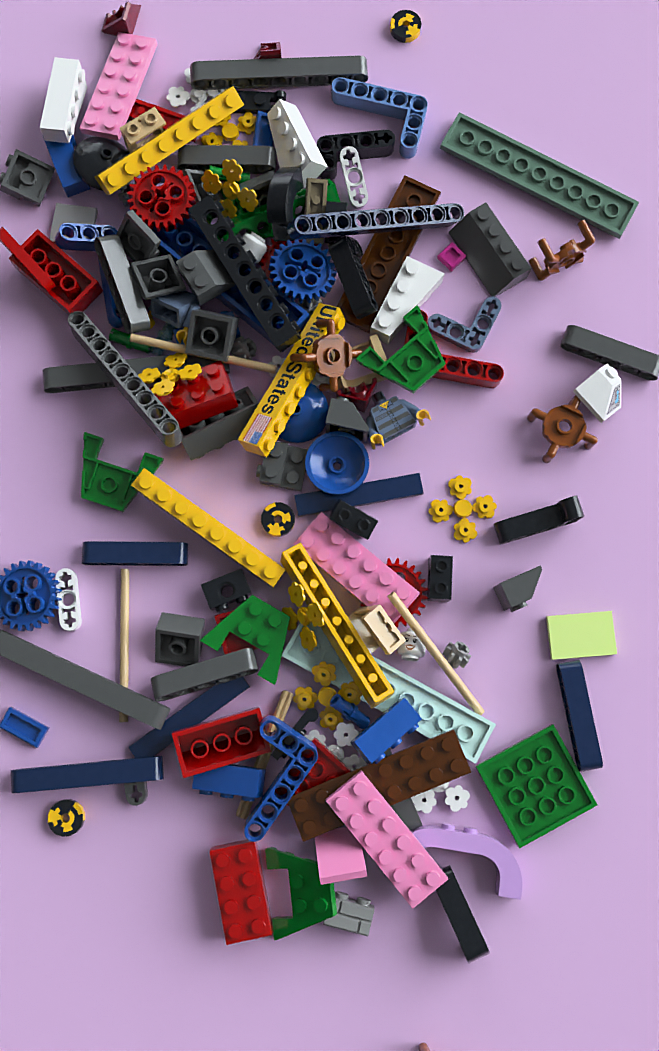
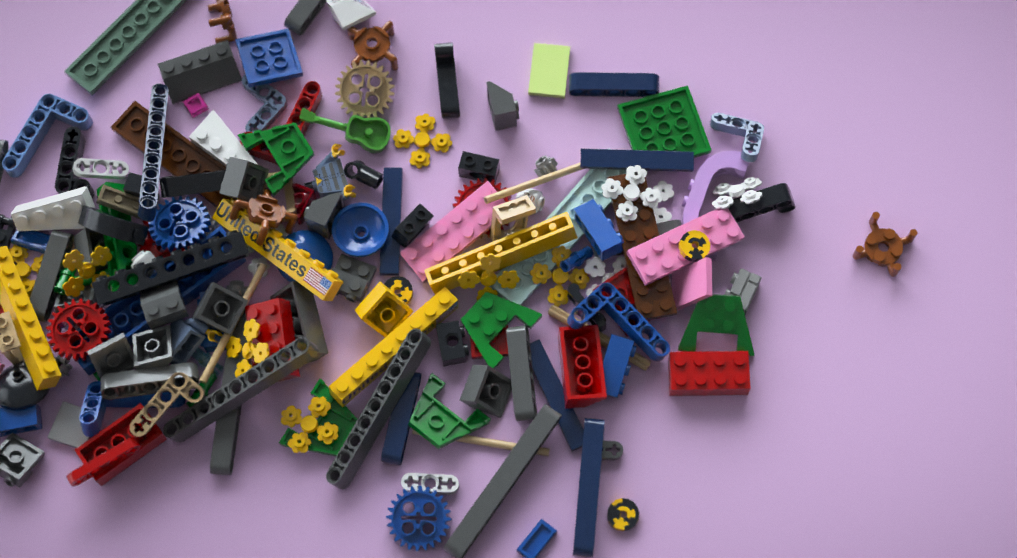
camera: 75 degrees left, 10 degrees down
(91, 300) = (163, 406): none -> tan beam
(101, 517) = (375, 417): none -> dark grey beam
(108, 459) = (309, 424): none -> yellow plant
(132, 593) = (438, 422): none -> green wing
(248, 508) = (383, 310): none -> yellow slope
(363, 324) = (243, 179): none -> dark grey slope
(386, 861) = (697, 238): none -> yellow piece
(407, 447) = (364, 174): none -> black piece
(437, 763) = (631, 193): none -> white plant
(456, 447) = (369, 133): none -> bright green piece
(469, 889) = (736, 191): none -> white plant
(486, 761) = (644, 158): none -> dark blue tile
(505, 412) = (347, 88): none -> tan gear
(522, 318) = (268, 57): none -> blue plate
(554, 887) = (725, 123): none -> sand blue beam

